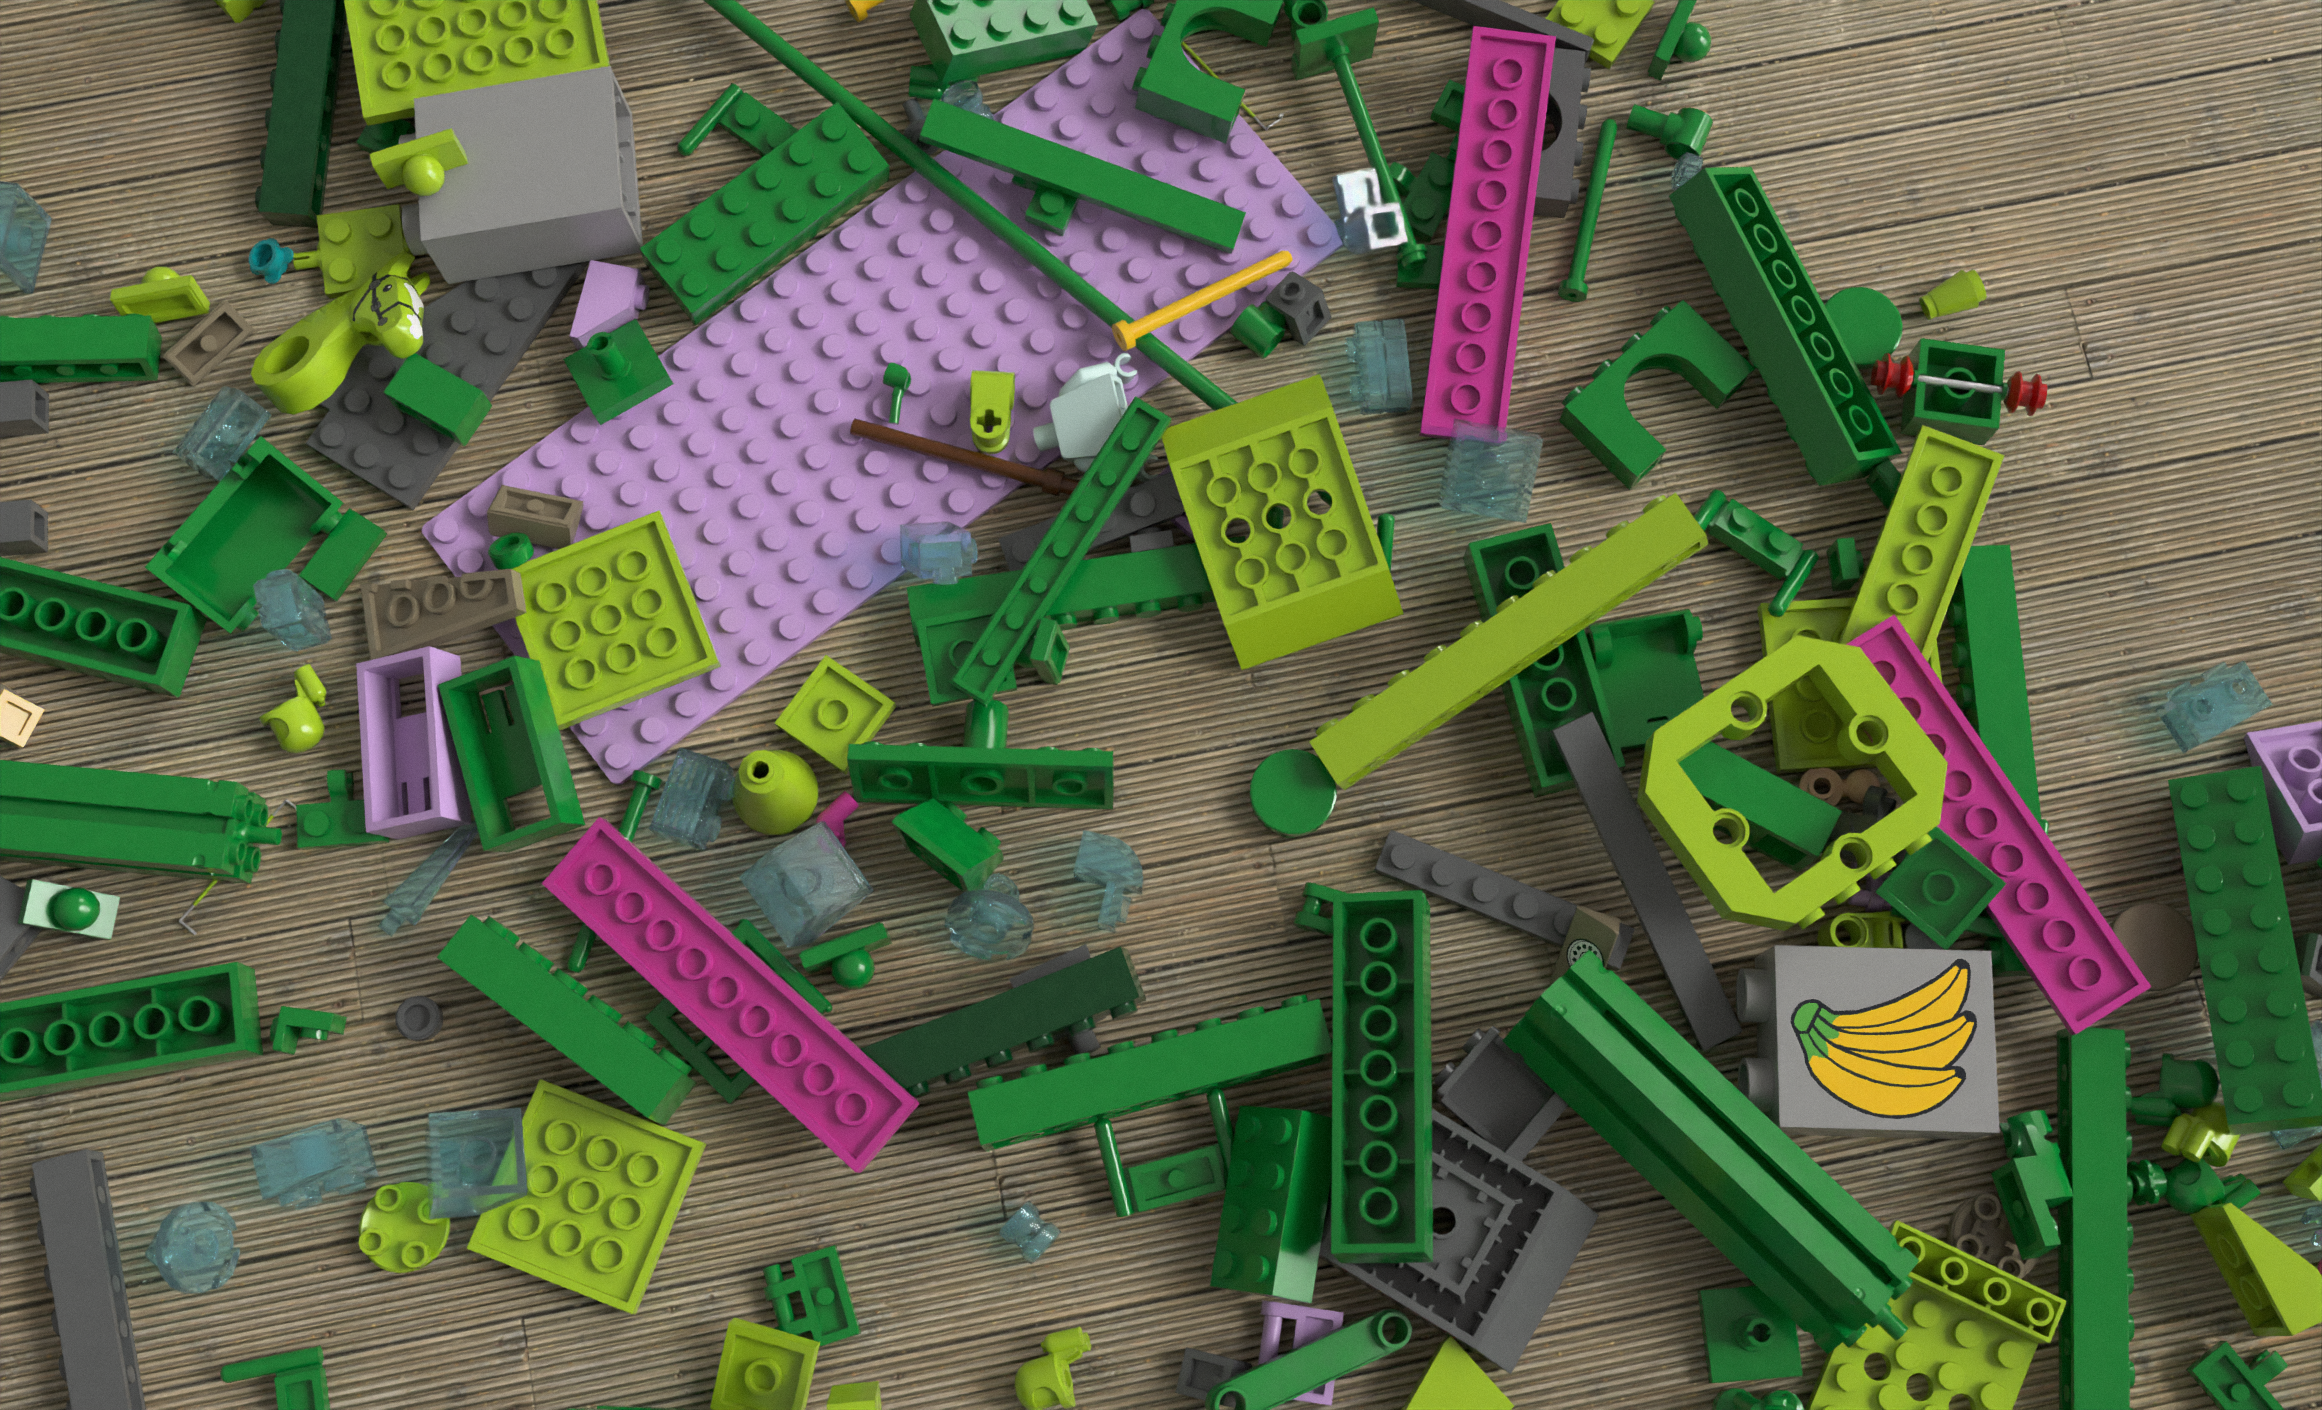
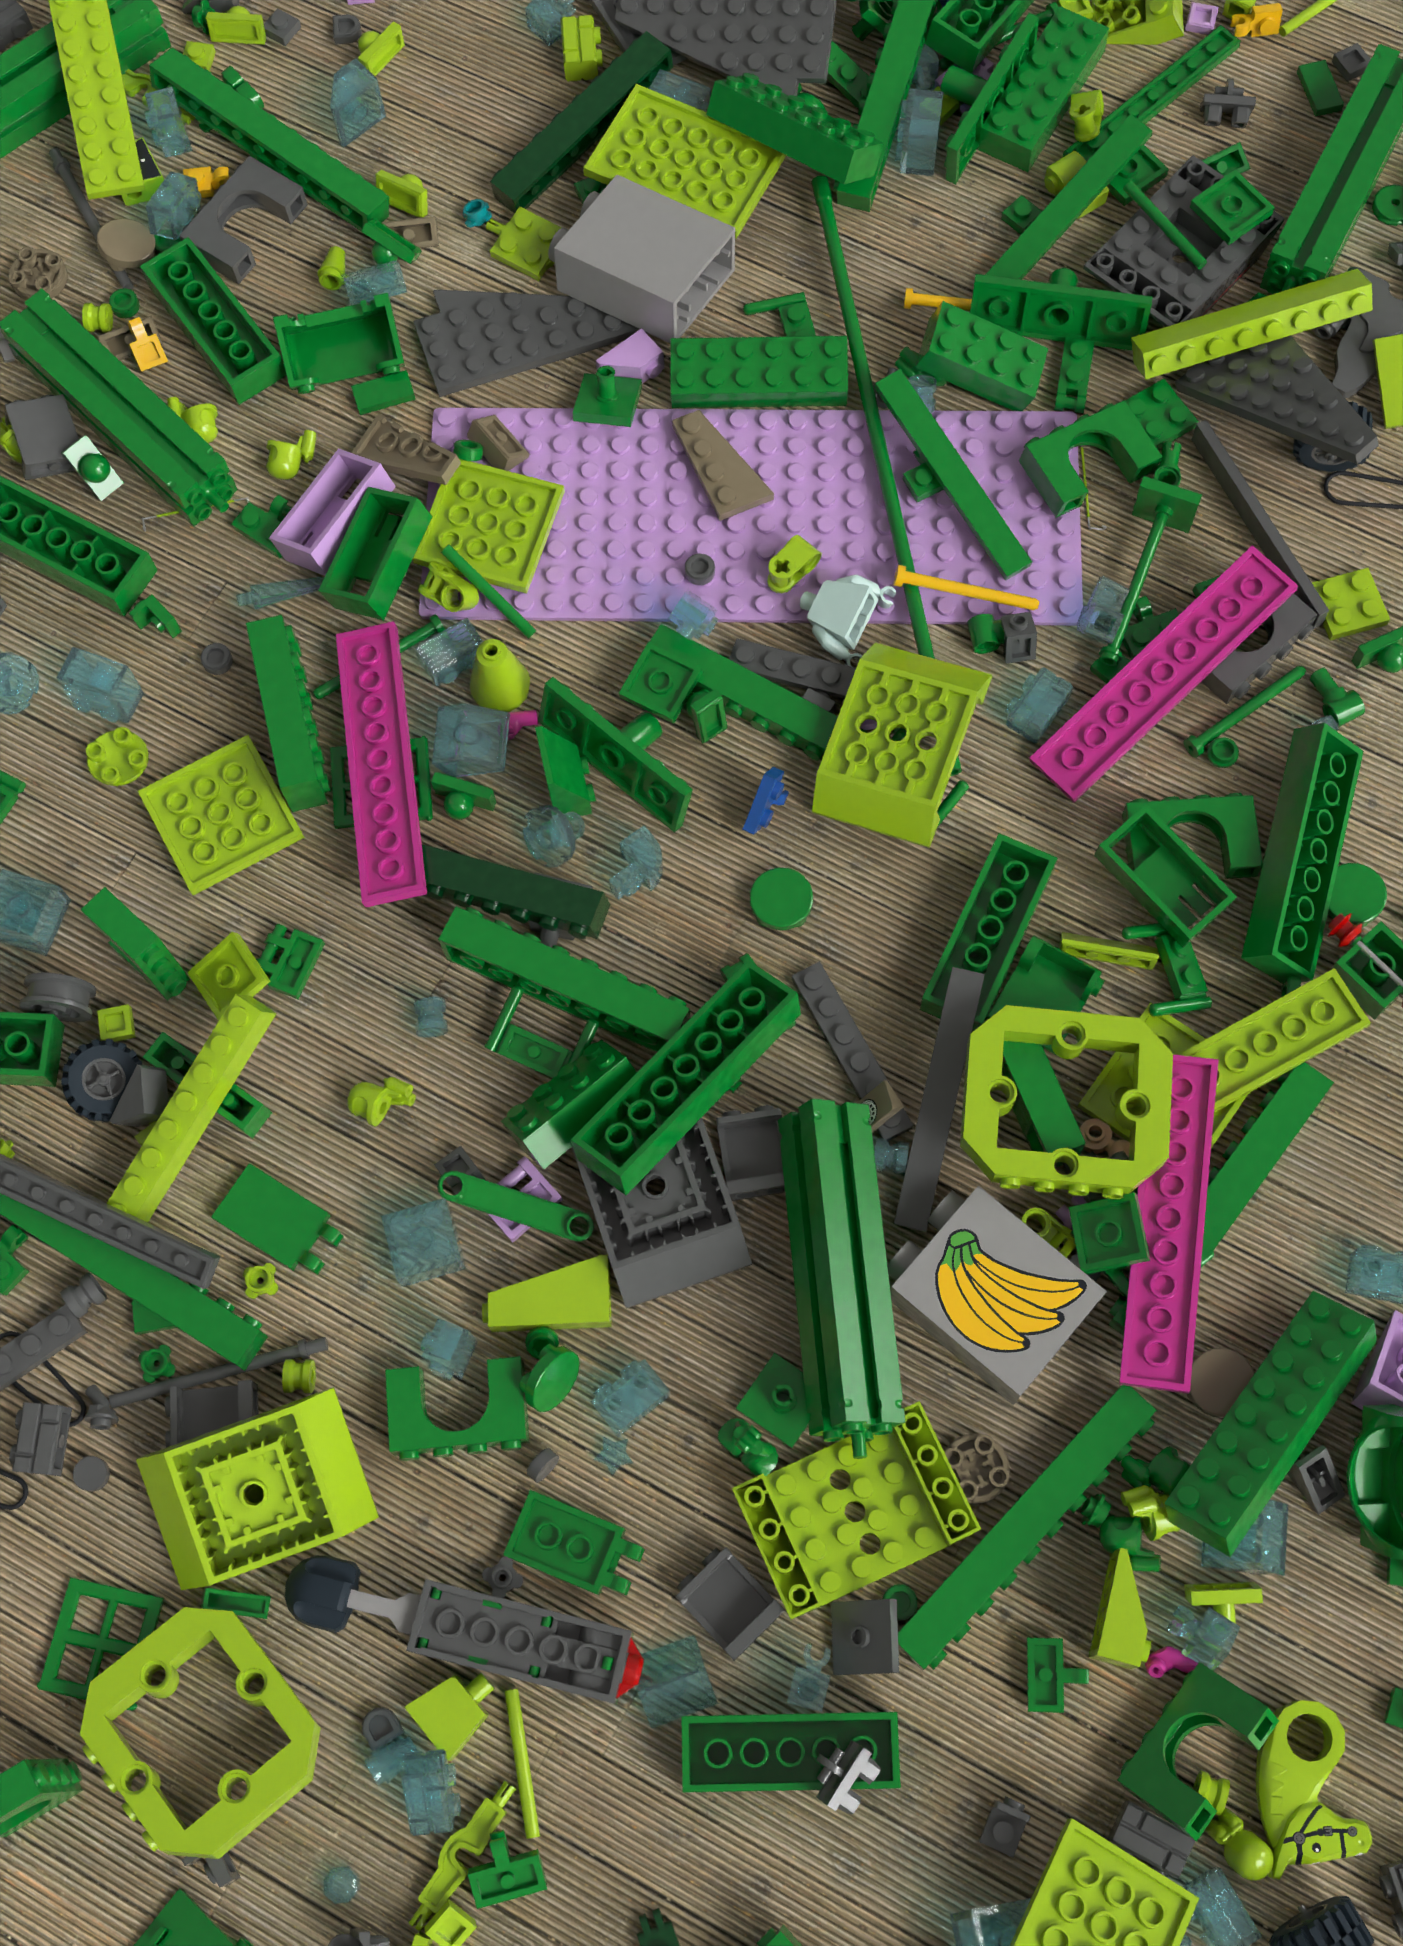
camera: 45 degrees right, 5 degrees down
(147, 754) = (198, 417): none -> lime piece
(152, 451) = (332, 269): none -> lime cone
(199, 372) = (389, 244): none -> green tile
(292, 610) = (329, 398): clear light blue brick -> none
(316, 352) = (459, 275): lime animal -> none
(420, 162) = (587, 205): lime tile -> none
(438, 399) = (498, 343): green panel -> none
(474, 1161) = (177, 747): clear light blue slope -> none
(621, 731) = (443, 588): none -> lime piece
(677, 698) = (488, 591): none -> green bar
(818, 358) = (721, 471): none -> dark tan wing
(833, 712) = (569, 661): lime plate -> none
(892, 490) = (700, 569): none -> dark grey tile
(900, 379) = (755, 514): green hand -> none
(1051, 481) = (792, 628): reddish brown bar -> none
(1060, 552) = (759, 662): green tile -> none
(1186, 684) = (767, 794): none -> blue plate
(1490, 470) = (1049, 804): clear light blue brick -> none
(1510, 640) = (973, 899): lime brick -> none
(1607, 274) = (1223, 752): none -> green plate
(1646, 977) = (892, 1156): none -> clear light blue wheel
(1673, 456) = (1166, 877): none -> green piece
(1687, 573) = (1109, 951): none -> lime slope
(1844, 564) = (1223, 1018): green plate -> none
(2031, 1182) = (1023, 1448): green plate -> none

